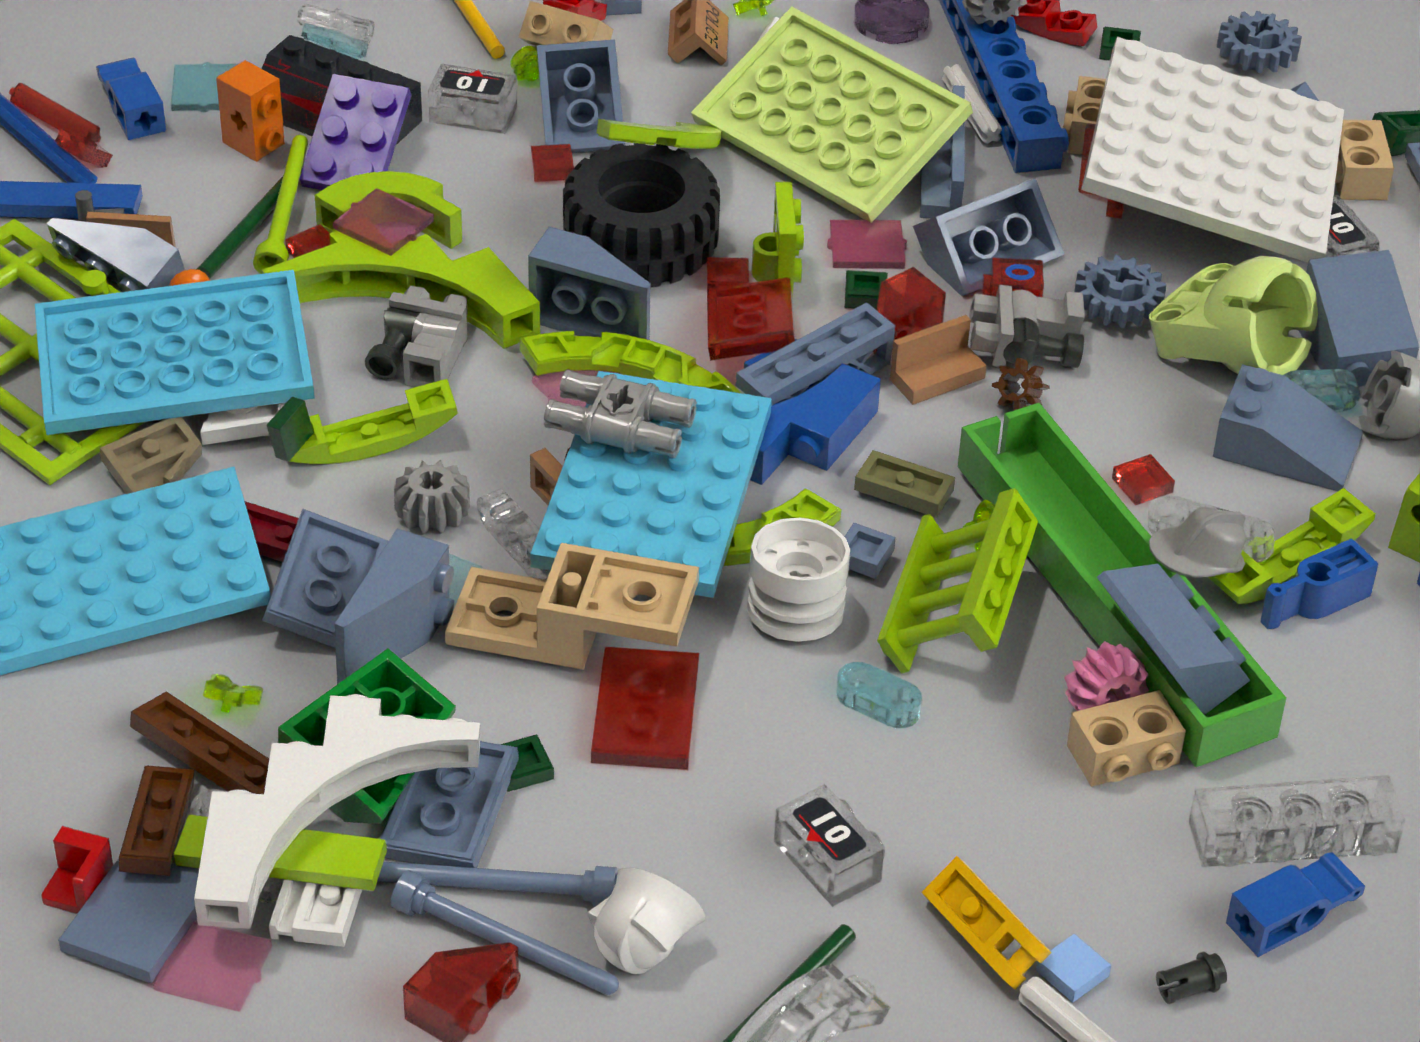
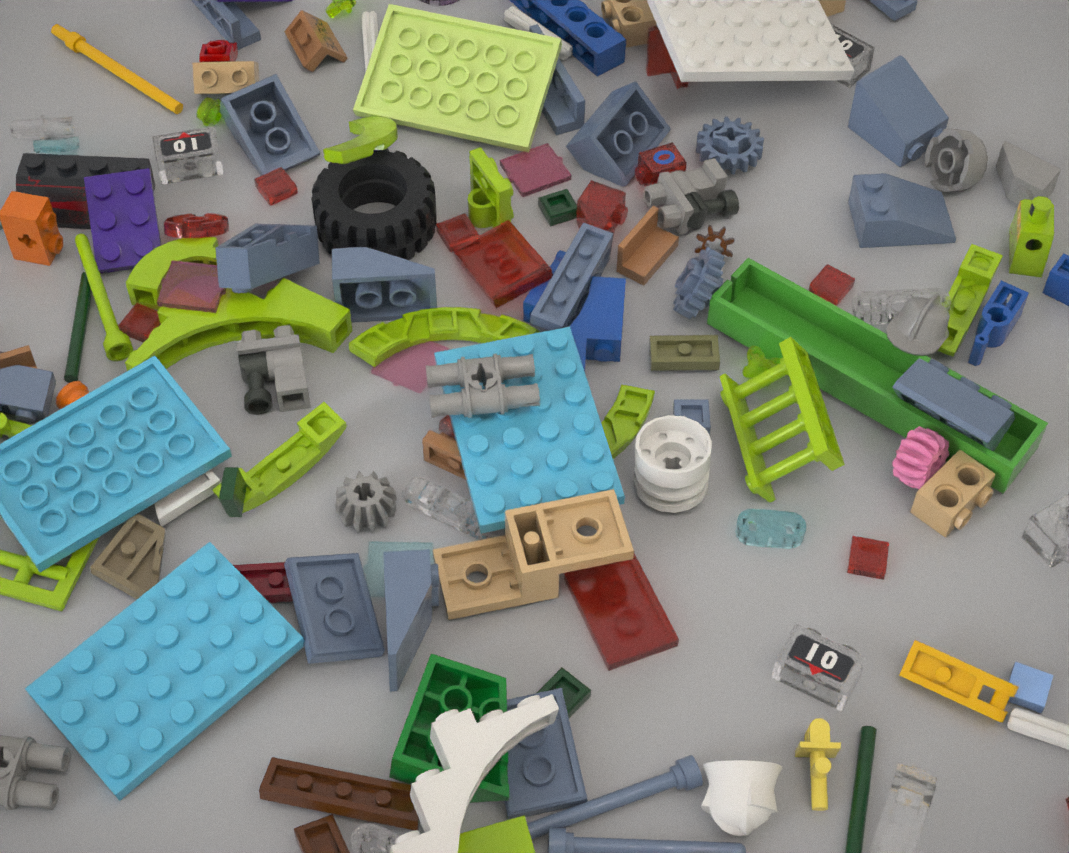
camera: 25 degrees left, 10 degrees up
(222, 688) = (318, 735): clear neon green piece -> none
(431, 167) = (195, 226): none -> clear red tile
(477, 214) = (265, 255): none -> sand blue wedge
(762, 920) = (818, 748): none -> light yellow arm
(963, 407) = (698, 282): none -> sand blue gear
(976, 767) = (868, 557): none -> clear red tile
(1239, 315) = (819, 140): yellowish green piece -> none
(1326, 384) = (909, 167): clear light blue beam -> none

